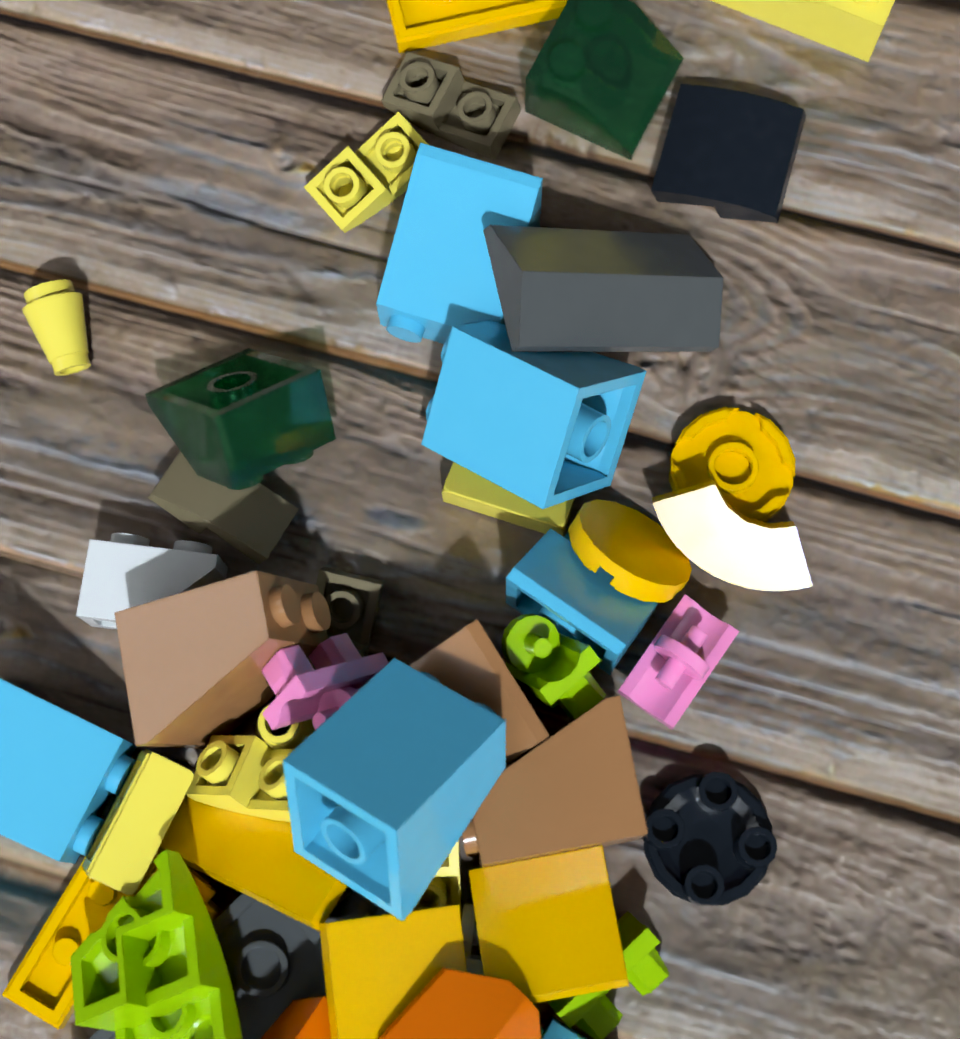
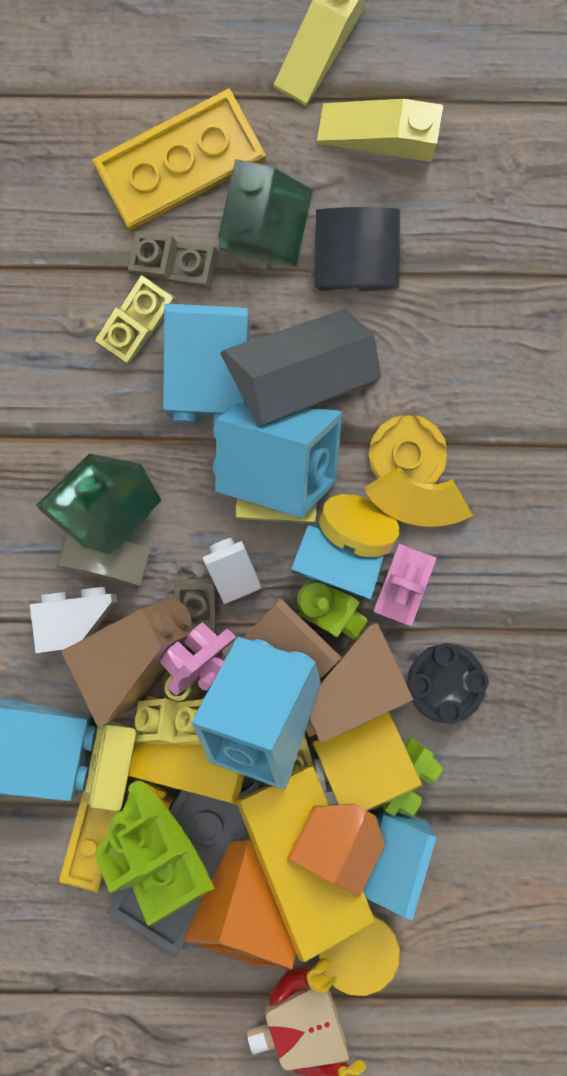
camera: 15 degrees left, 10 degrees up
(414, 568) = (231, 570): none -> white slope

